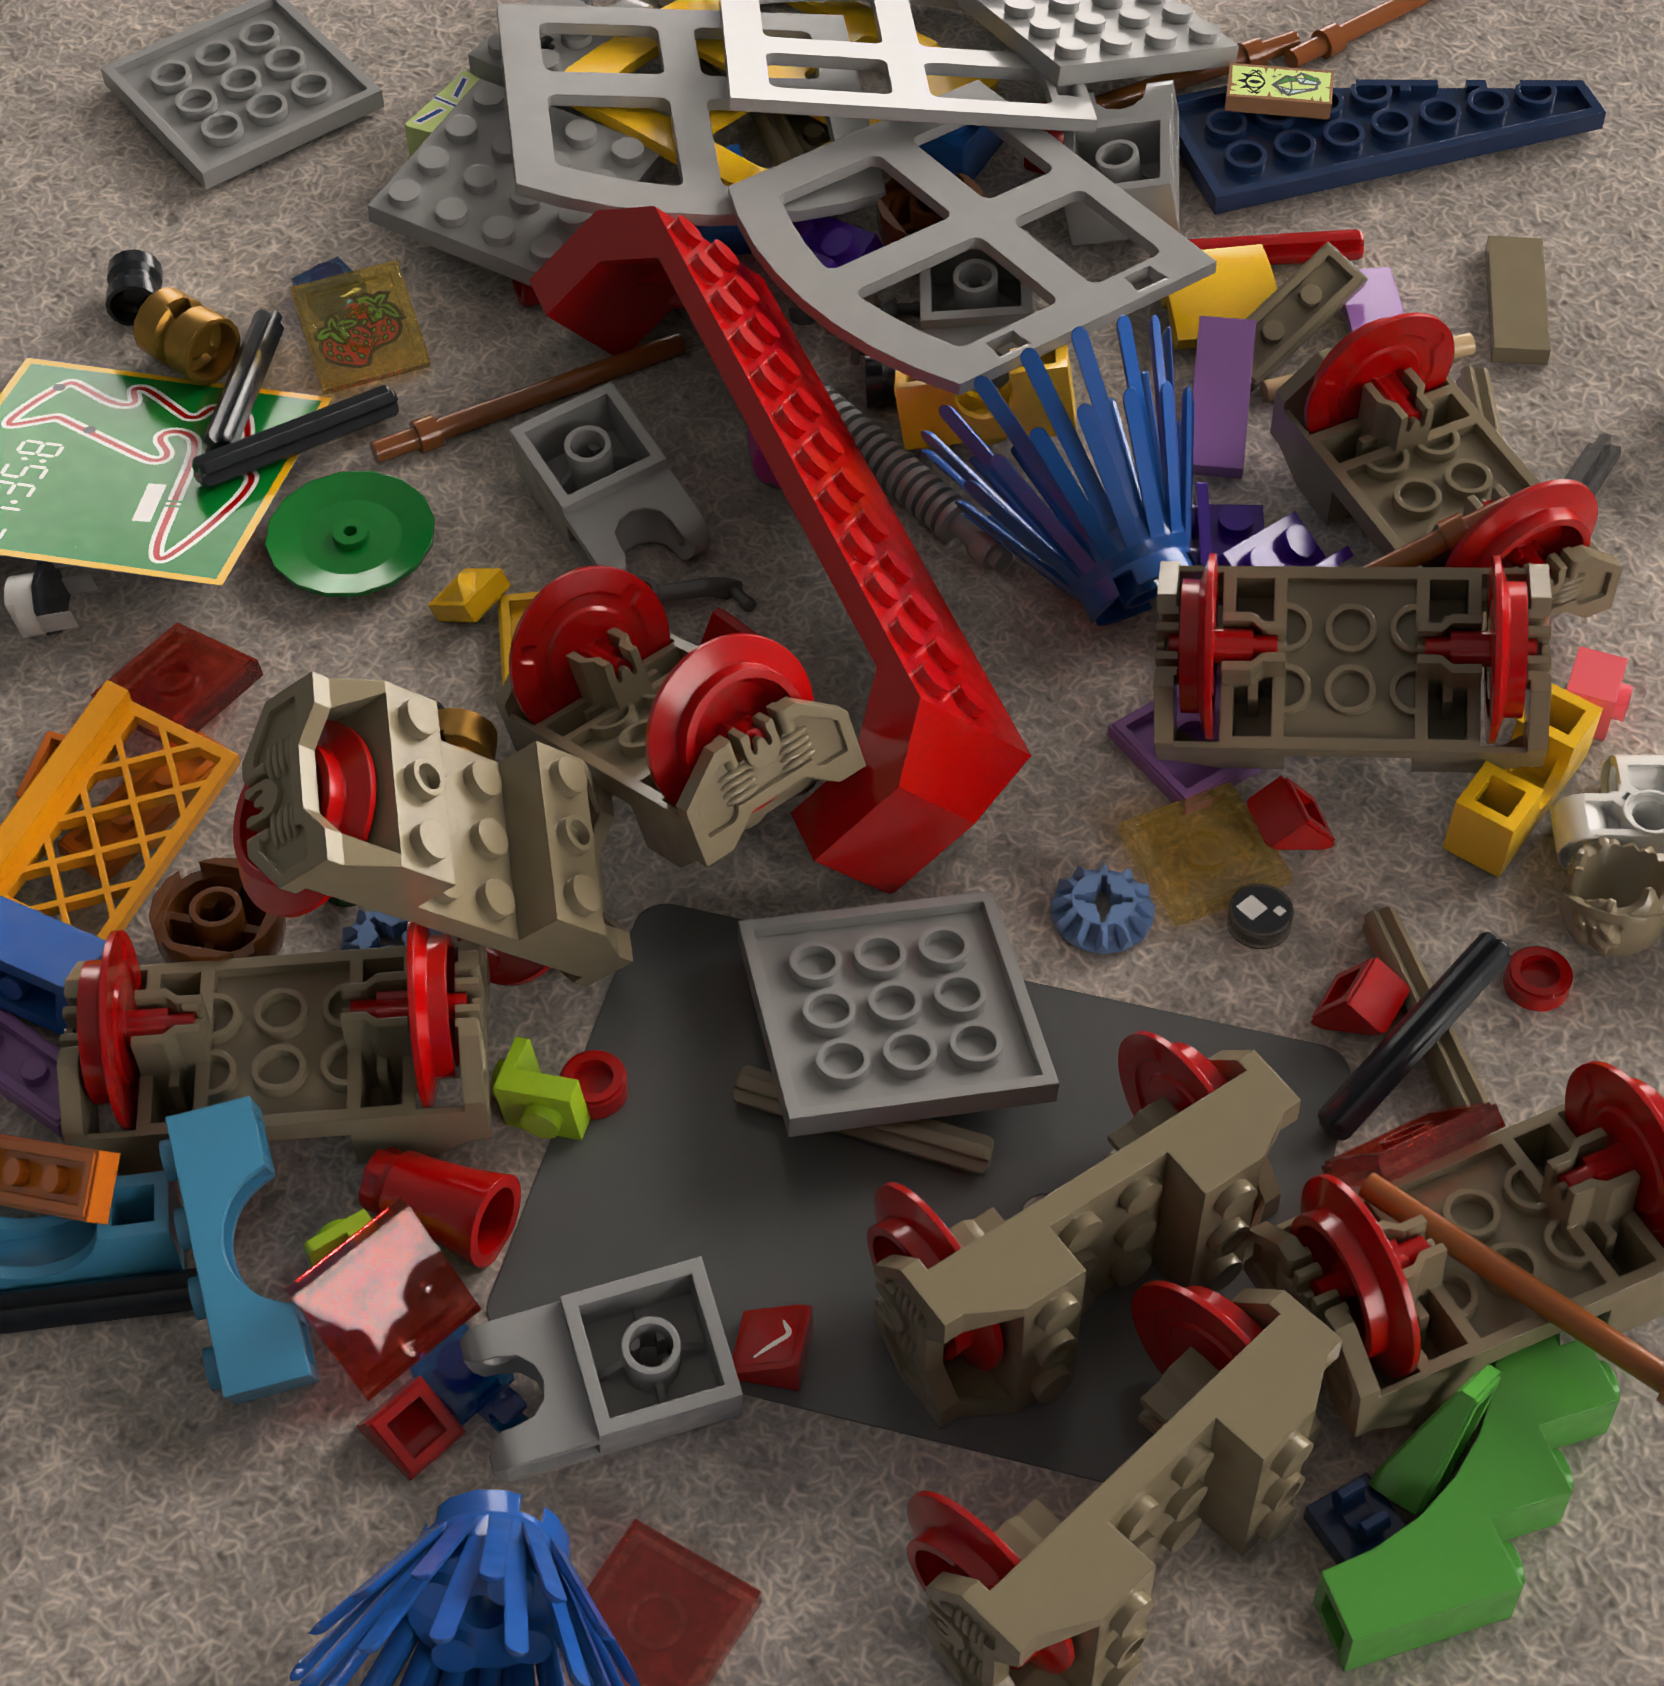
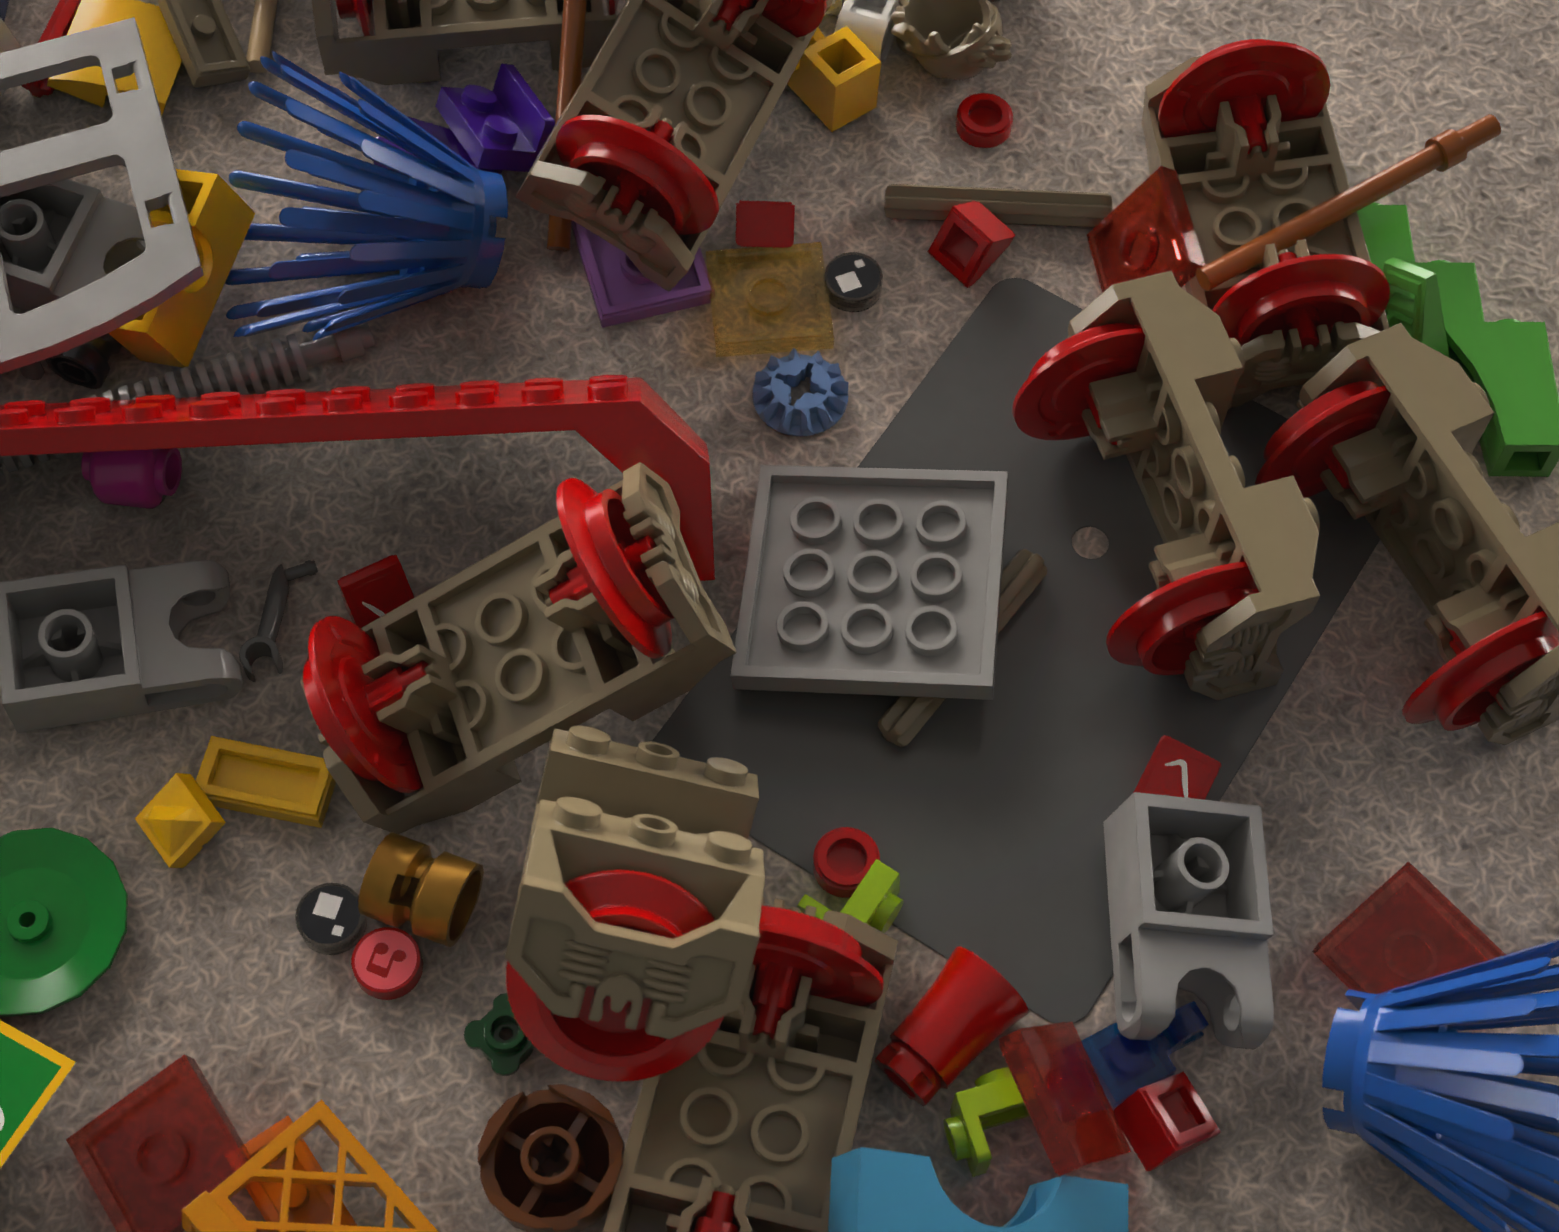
camera: 75 degrees left, 10 degrees up
(1222, 395) = (223, 74): medium lavender tile -> none
(1414, 1036) = (1030, 212): black axle -> none

